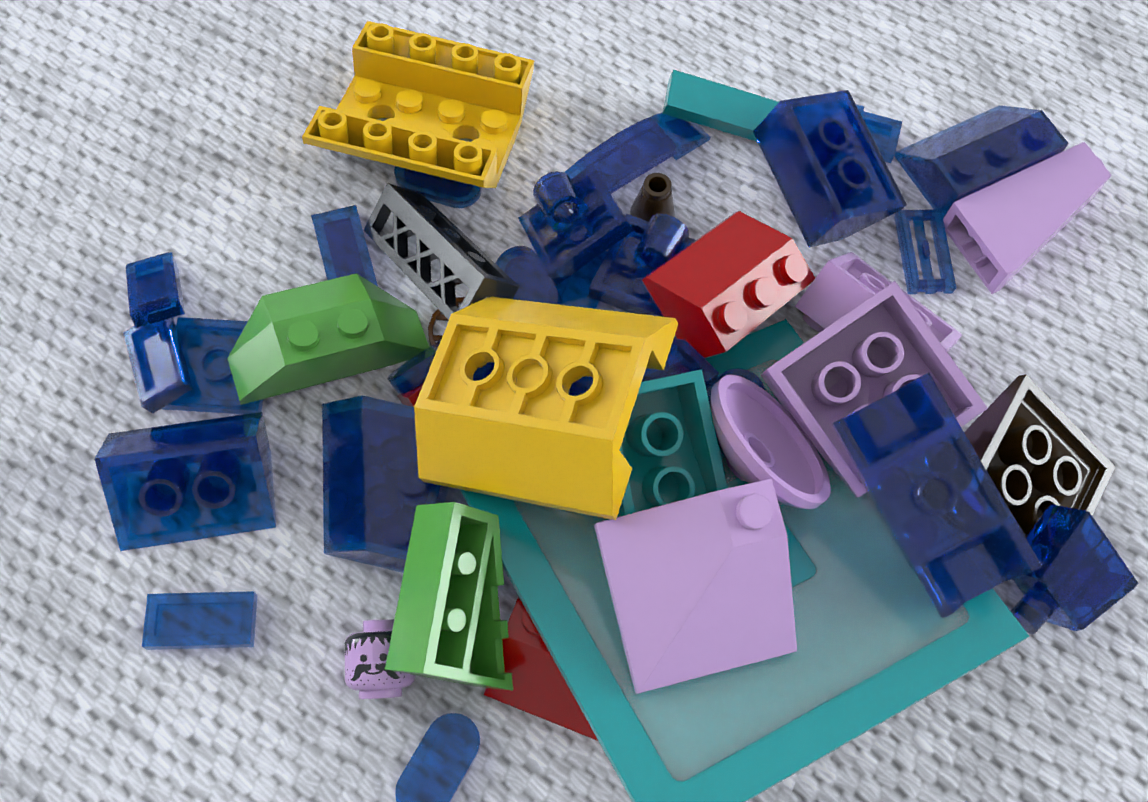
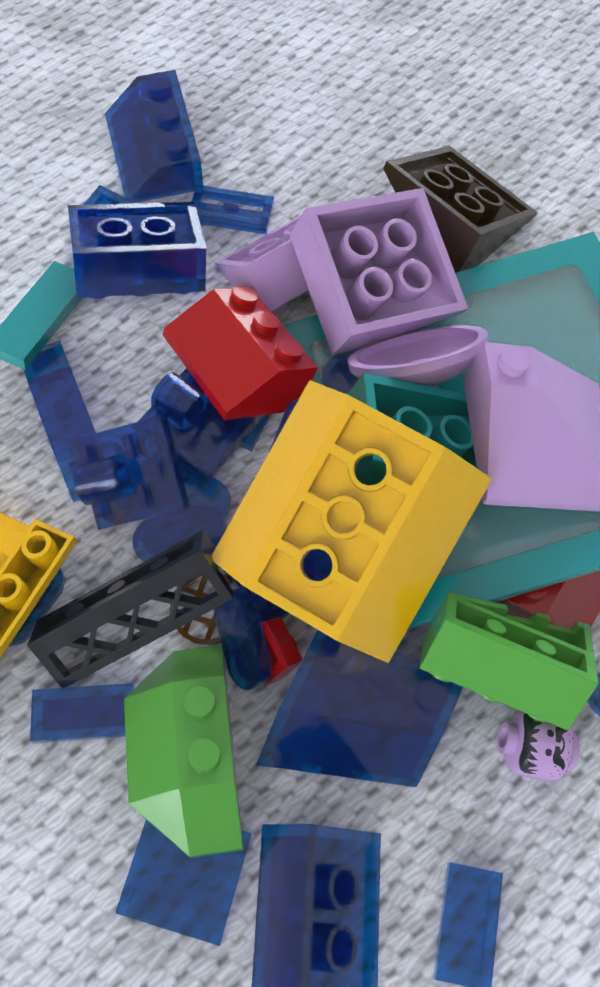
camera: 75 degrees left, 0 degrees up
(154, 290) = (78, 935): clear blue tile -> none
(157, 364) = (167, 941): clear blue tile -> none
(653, 198) = (125, 400): dark brown cone -> none
(935, 495) = (482, 246): clear blue piece -> none
(1019, 215) = (227, 131): lavender slope -> none
(1077, 576) = (539, 196): clear blue torso -> none

